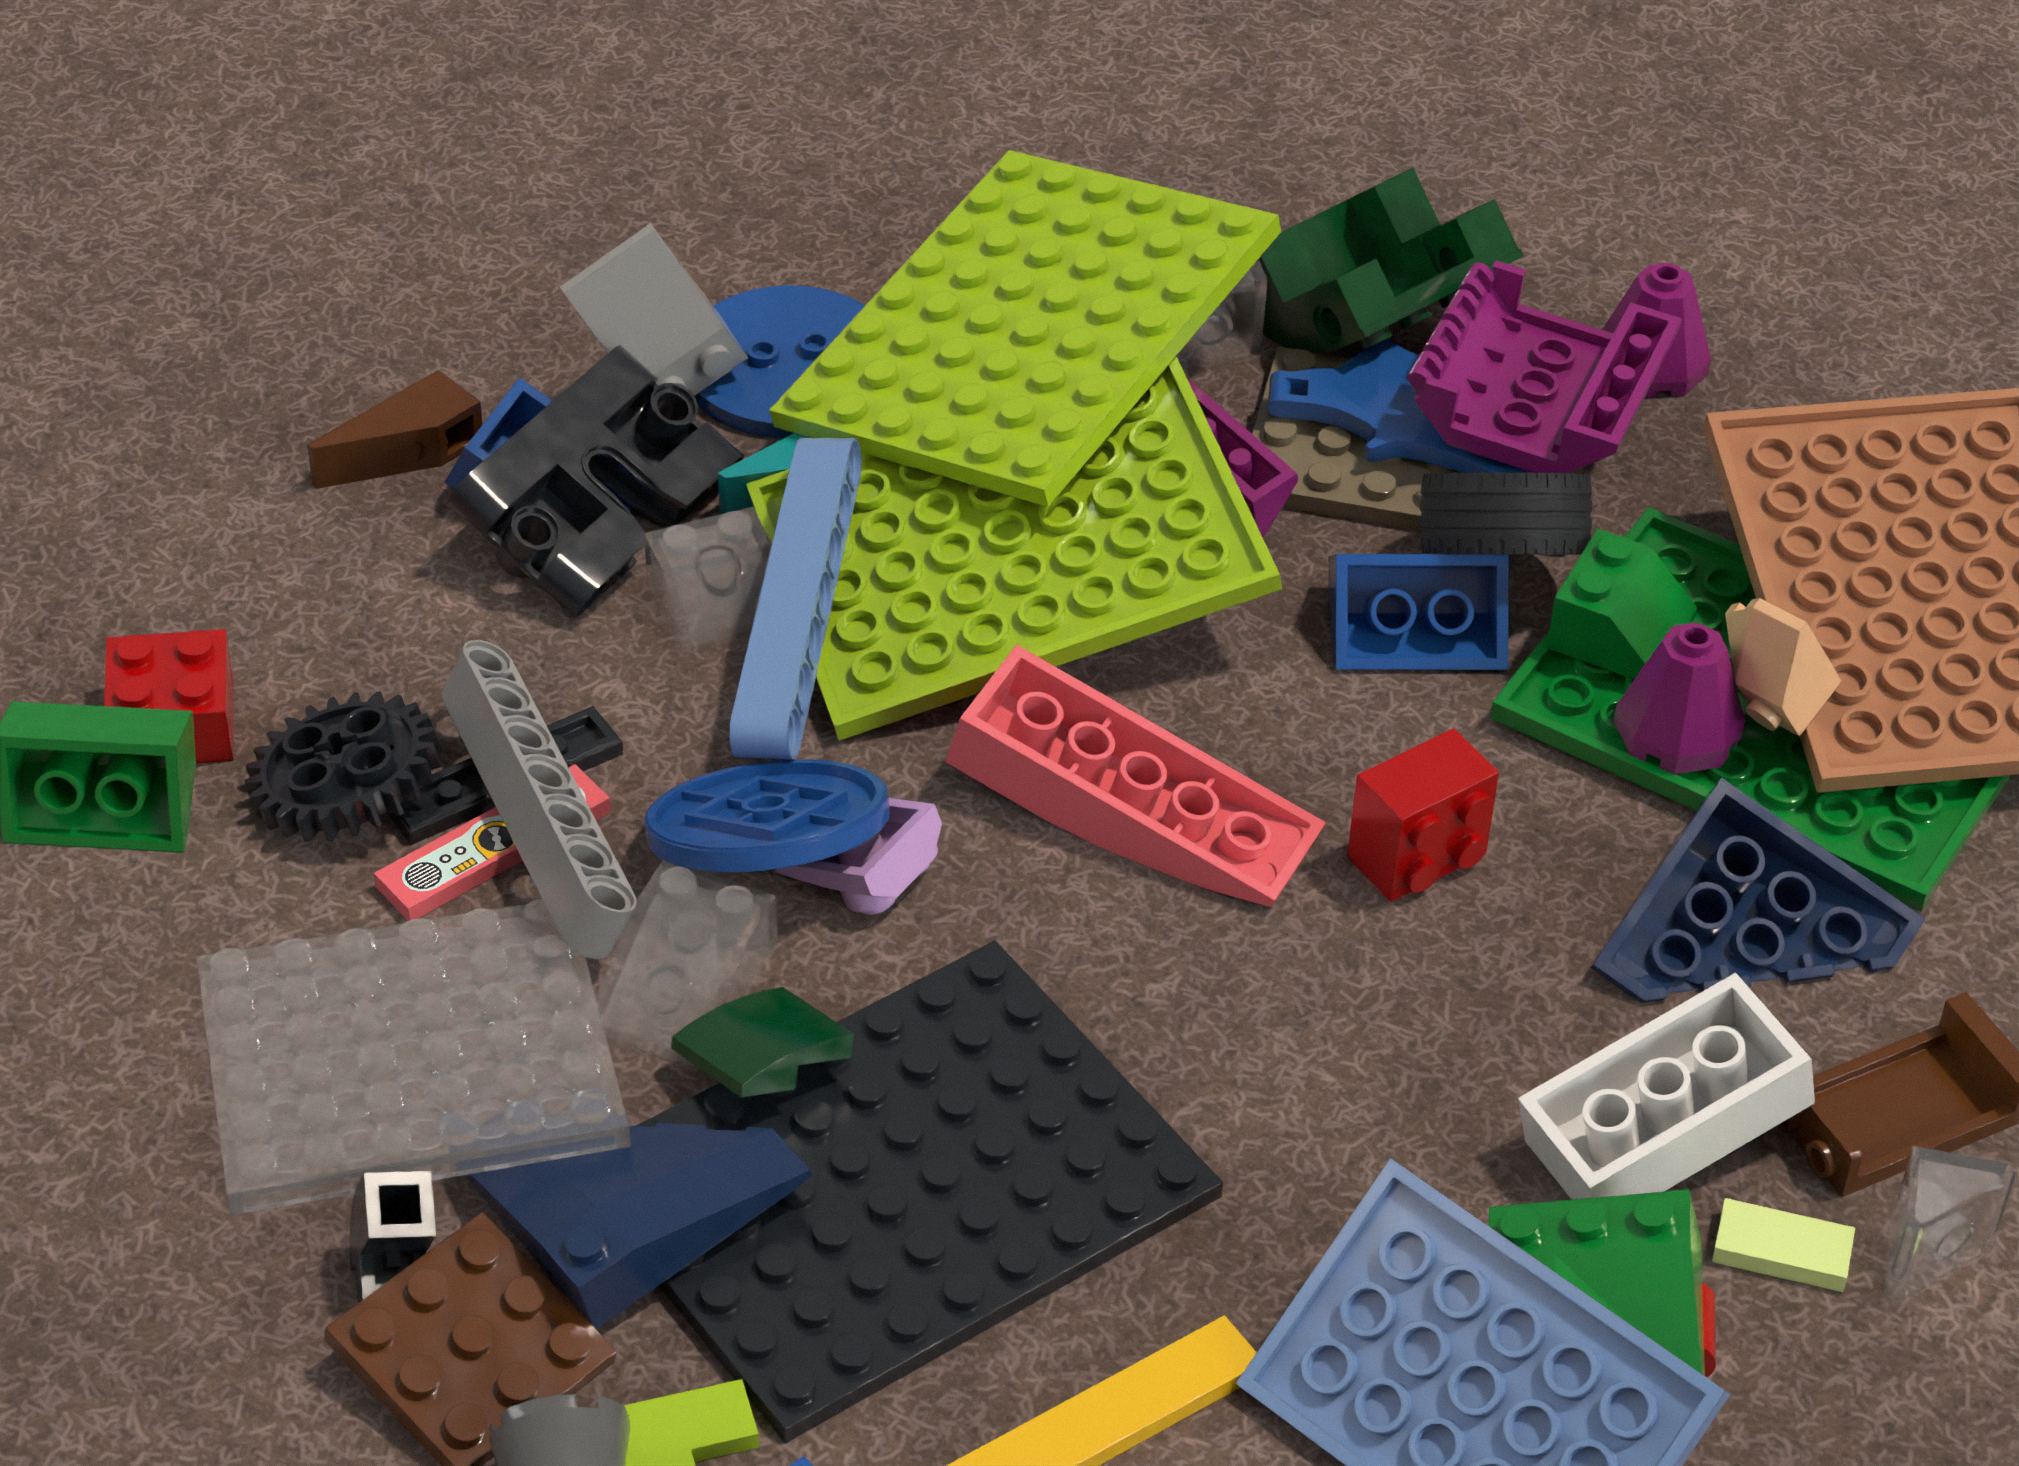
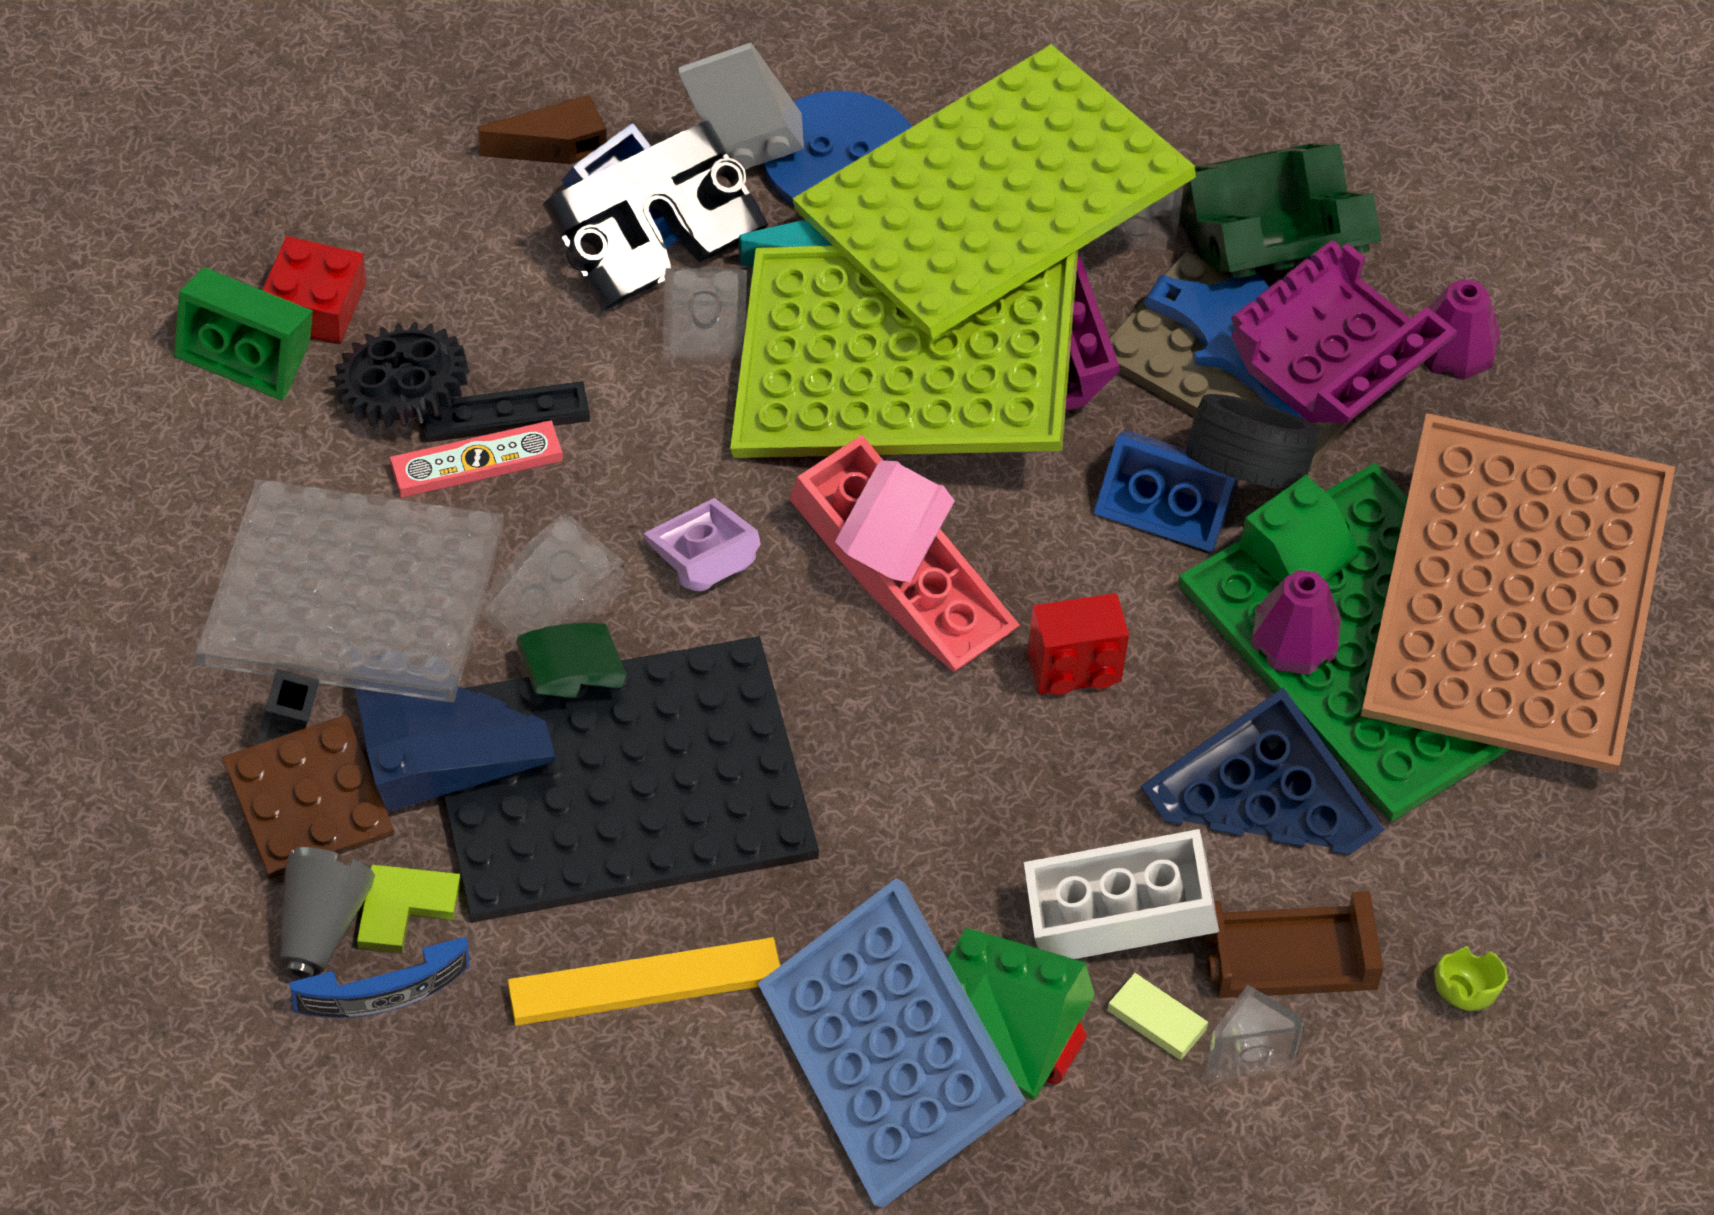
camera: 20 degrees right, 10 degrees up
(538, 800) = (507, 441): light grey beam -> none
(767, 815) = (648, 502): blue plate -> none
(796, 599) = (743, 347): medium blue beam -> none
(1115, 729) = (895, 521): none -> bright pink slope
(1778, 665) = (1364, 624): light nougat slope -> none

